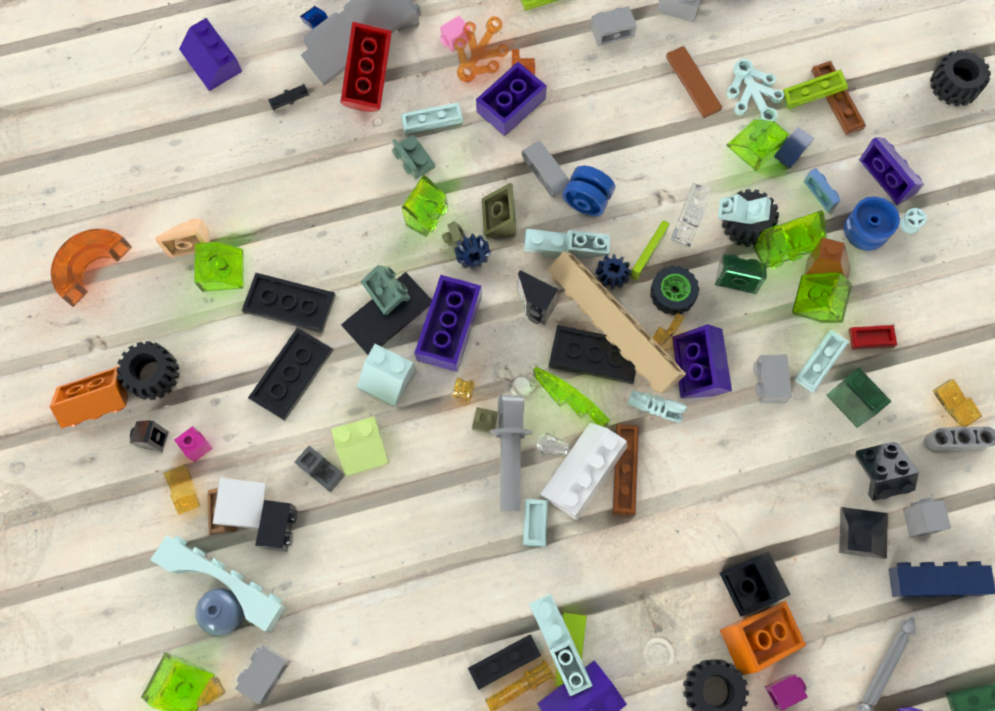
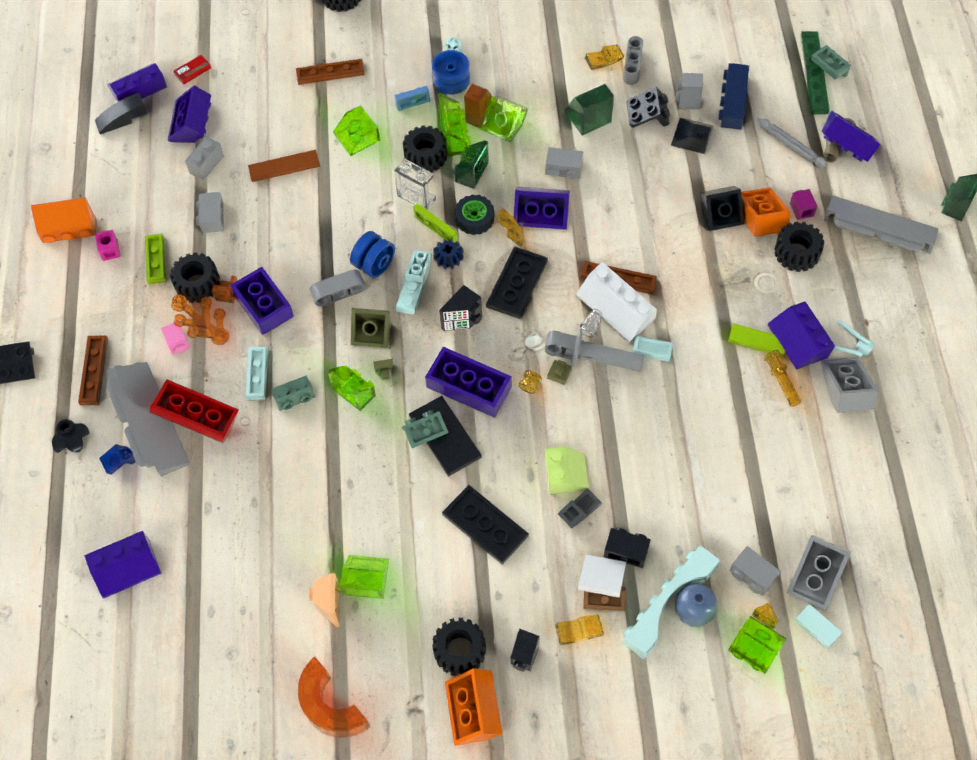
camera: 80 degrees left, 10 degrees down
(193, 444) = (539, 611): dark pink brick -> none
(288, 97) = (195, 494): black pin -> none
(288, 302) = (414, 519): black tile -> none
(385, 375) = (504, 441): light aqua slope -> none
(472, 251) = (405, 353): dark blue gear -> none
(504, 661) = (762, 388): black tile -> none
(528, 18) = (190, 266): none -> black tyre
(560, 644) = (755, 341): light aqua slope -> none
(564, 393) = (548, 307): clear neon green slope -> none
(616, 322) = (495, 256): tan brick -> none
(657, 405) = (571, 244): light aqua hinge -> none
(740, 210) = (424, 144): light aqua slope -> none
(754, 89) = (287, 127): light aqua plant -> none
(793, 147) = (371, 107): dark blue slope -> none
(815, 89) = (319, 83): lime tile -> none
(821, 361) = (554, 131): light aqua tile -> none
(872, 337) = (541, 95): red tile -> none
(890, 170) = (408, 50): dark purple slope -> none

